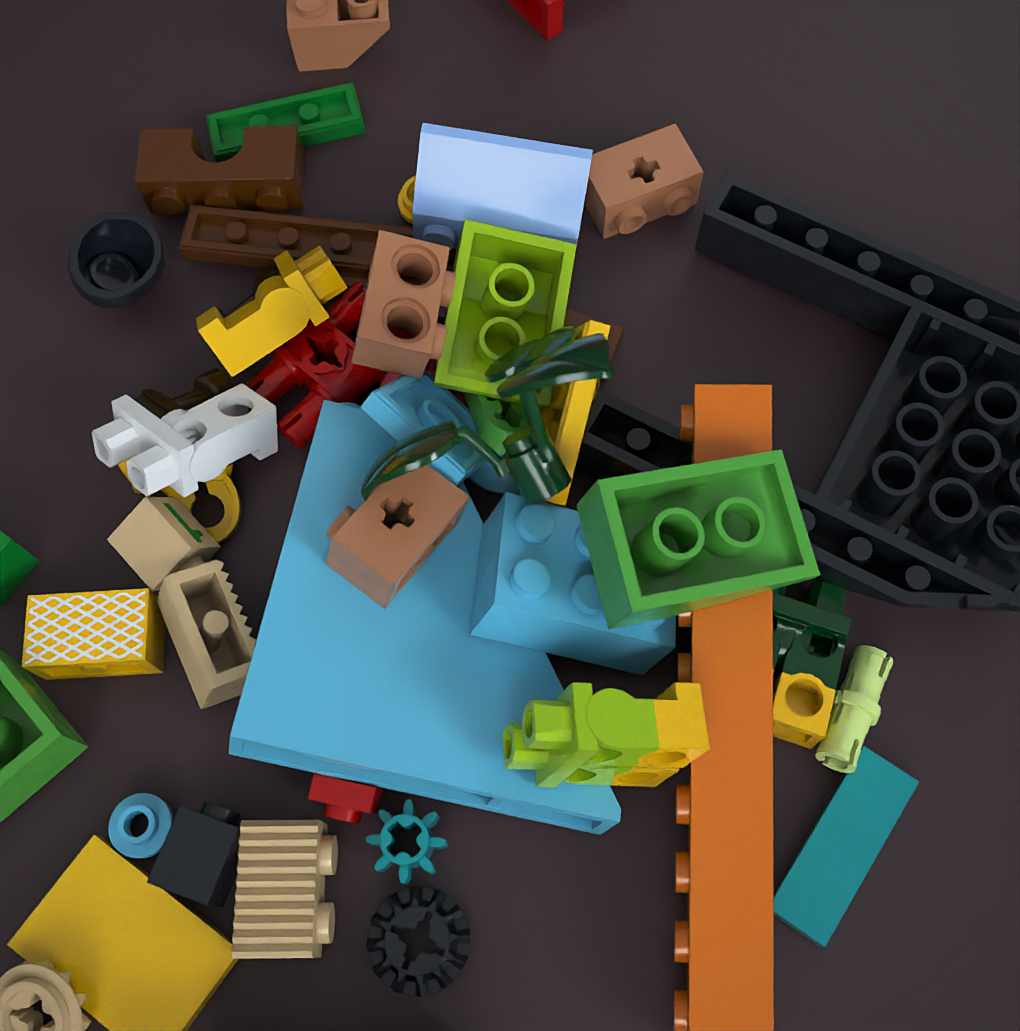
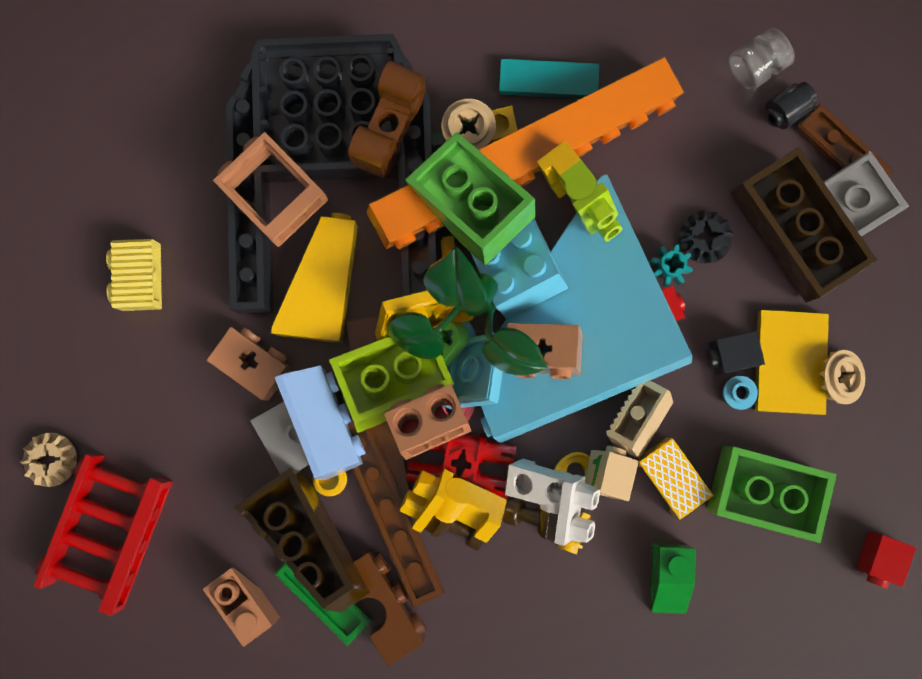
camera: 120 degrees left, 15 degrees up
(115, 259) = (476, 617): black hat -> none
(283, 889) = (726, 307): tan brick -> none
(348, 107) = (304, 537): none -> dark brown wedge
(692, 316) = (321, 287): none -> yellow slope
(820, 308) = (296, 213): none -> nougat window
(838, 616) = (470, 110): none -> tan gear
(846, 111) = (135, 275): none -> light yellow brick
(854, 709) = (493, 99): yellowish green pin -> none
(857, 460) = (400, 99): none -> reddish brown beam

